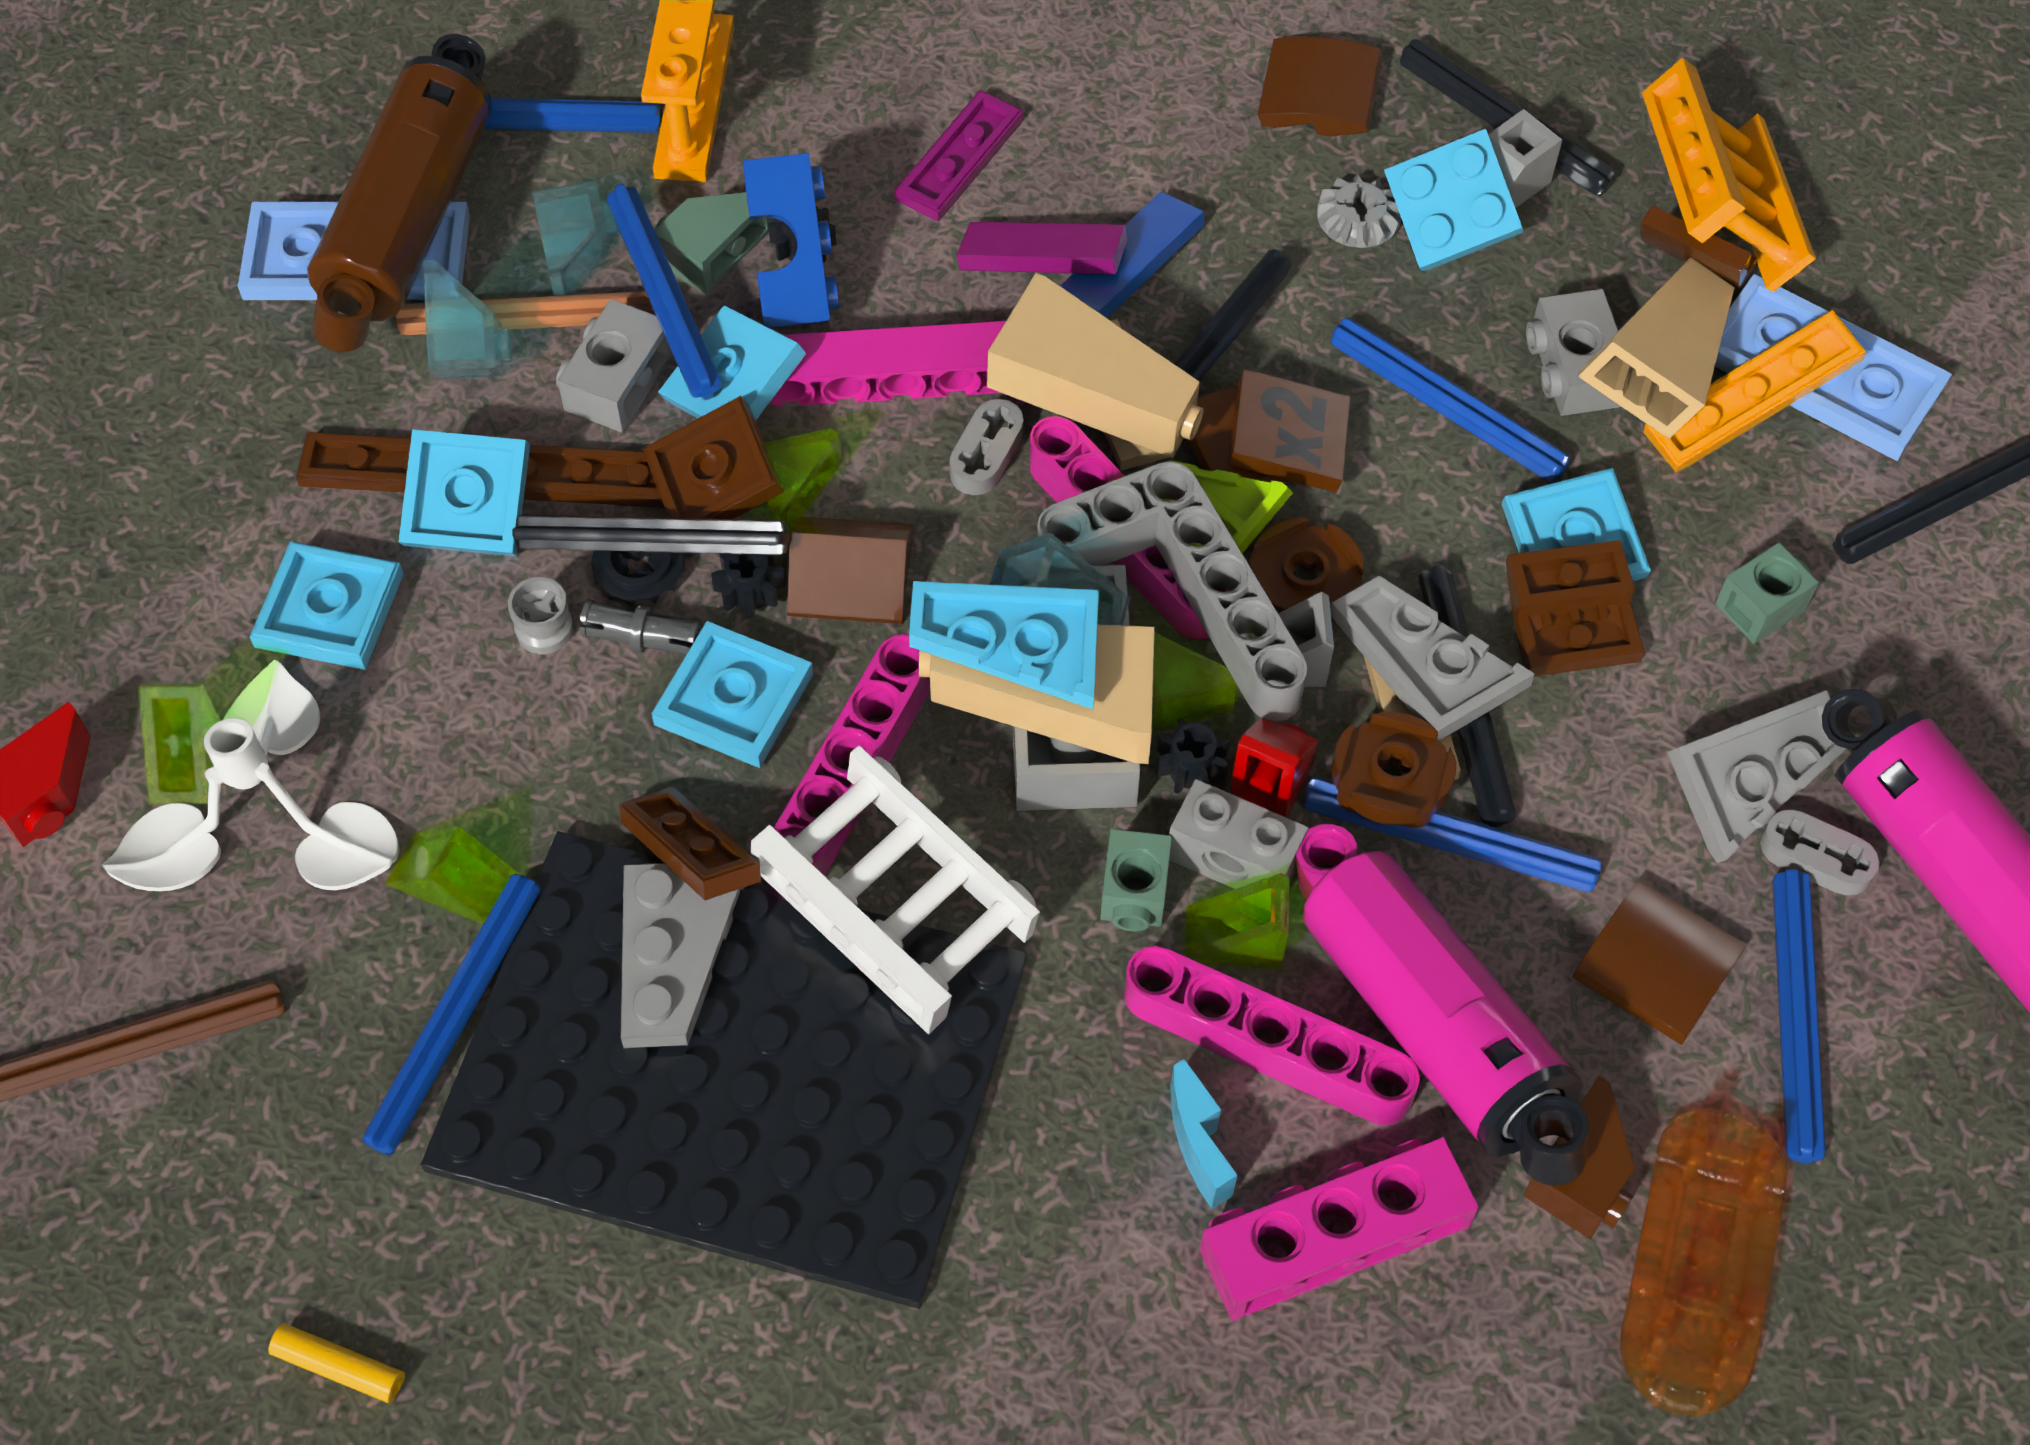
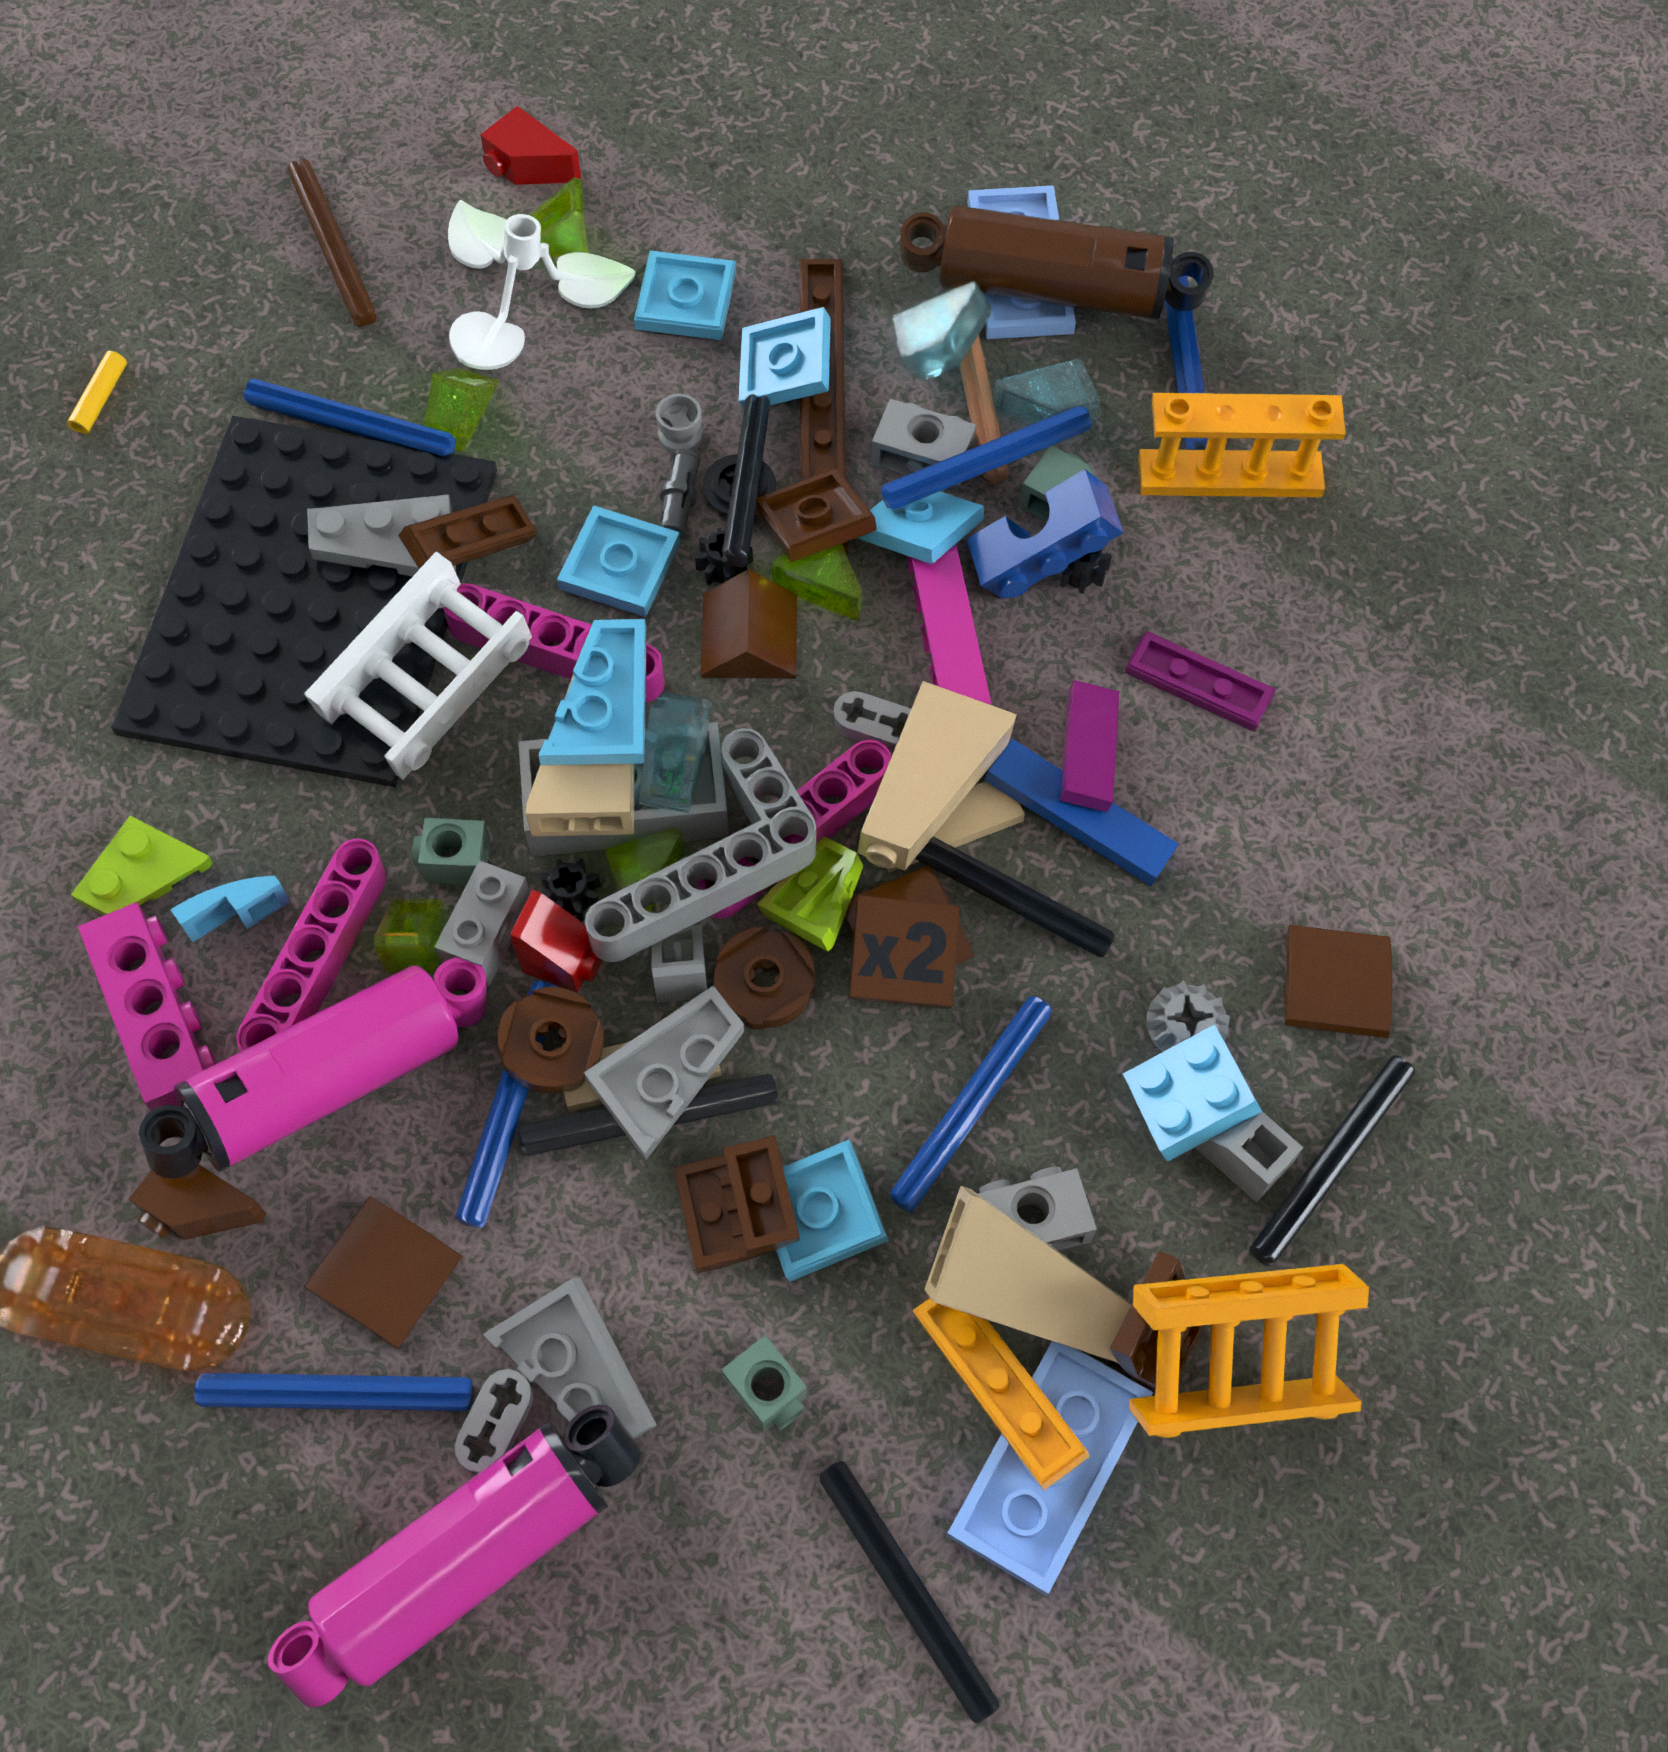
camera: 85 degrees right, 5 degrees up
(1131, 1264) = (137, 868): none -> lime wing

